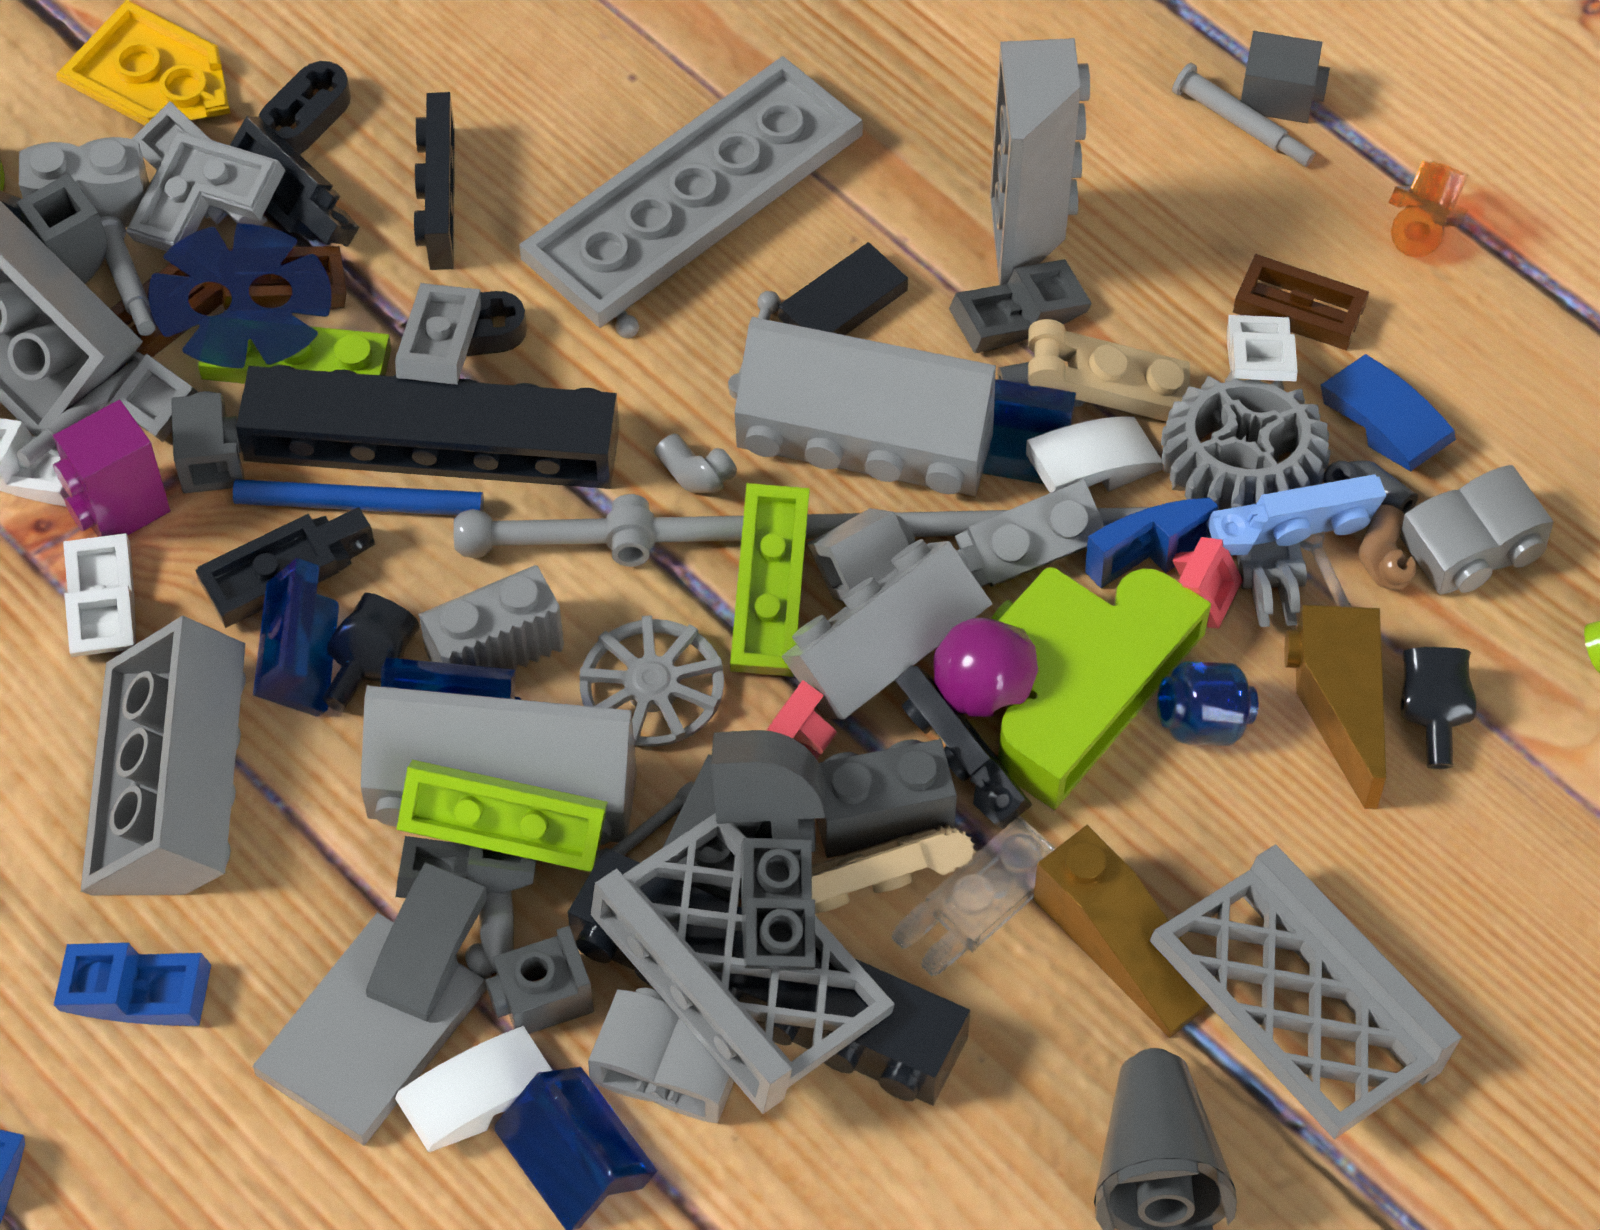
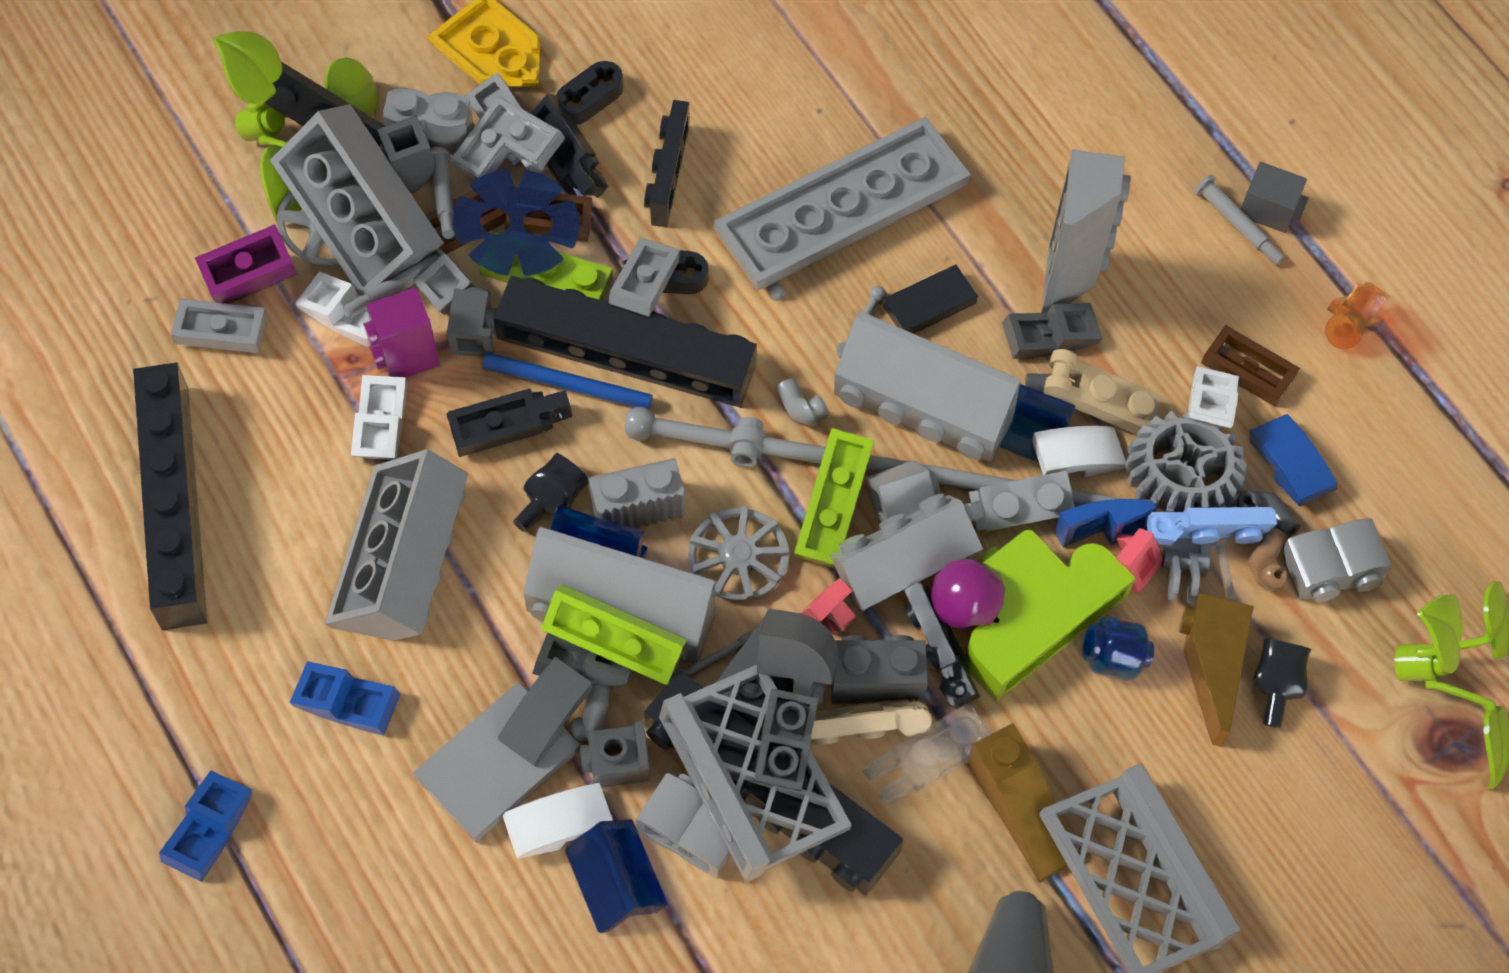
camera: 10 degrees right, 5 degrees up
(294, 640) = (501, 477): clear blue panel -> none

